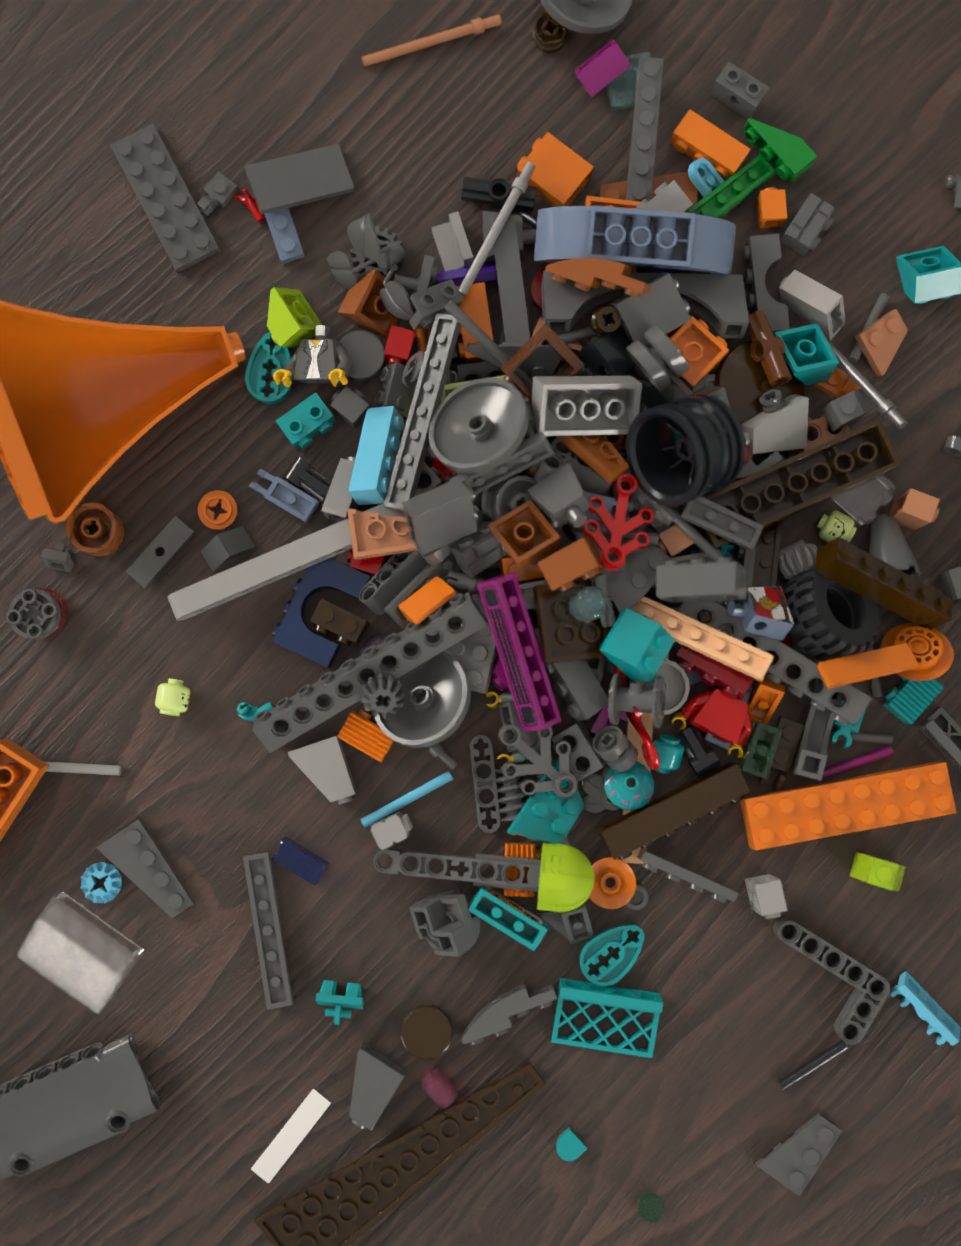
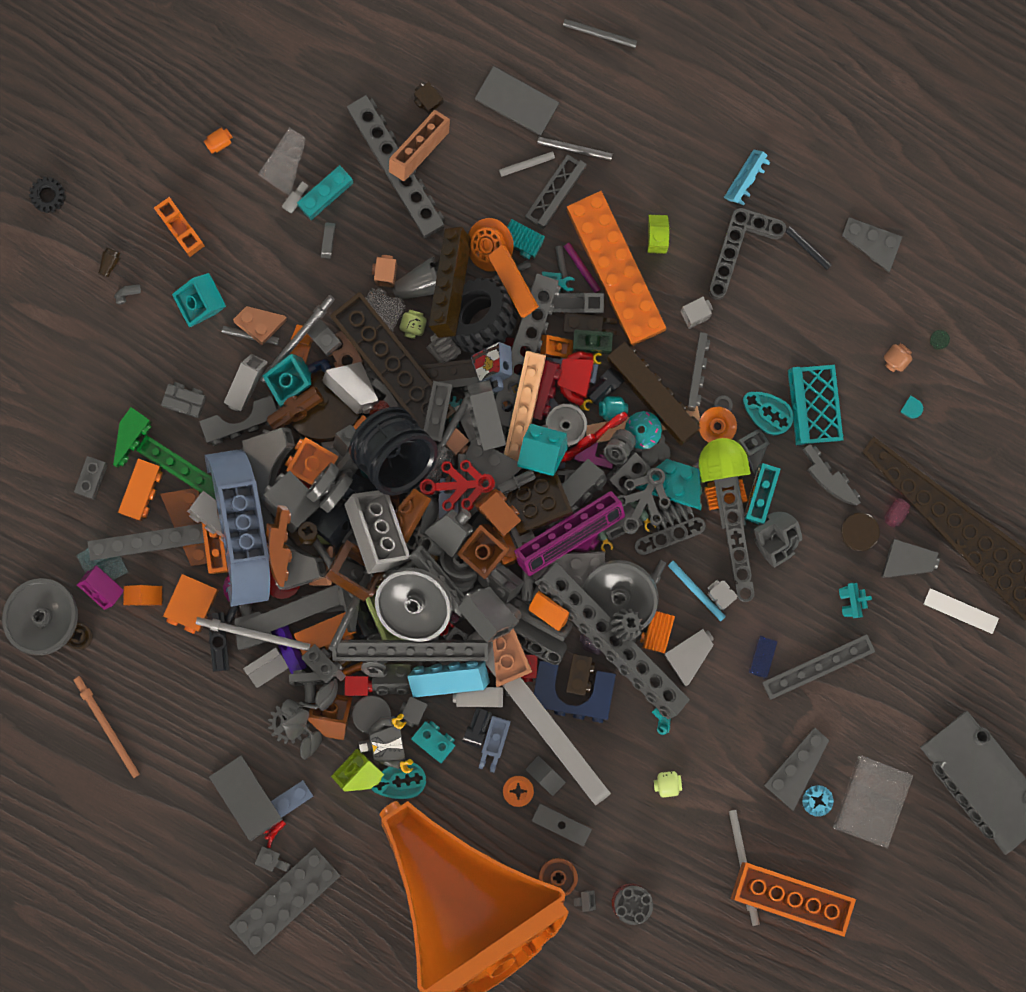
camera: 105 degrees left, 0 degrees up
(578, 121) = (142, 595): none -> orange slope
(588, 604) = (522, 492): clear light blue head -> none
(637, 696) = (578, 440): dark grey hose -> none
(640, 1146) = (898, 357): none -> nougat head
(704, 176) = (167, 485): medium azure plate -> none
(771, 208) = (177, 431): orange brick -> none
(772, 401) = (334, 395): dark grey bush -> none
(810, 392) = (323, 364): none -> dark blue arm

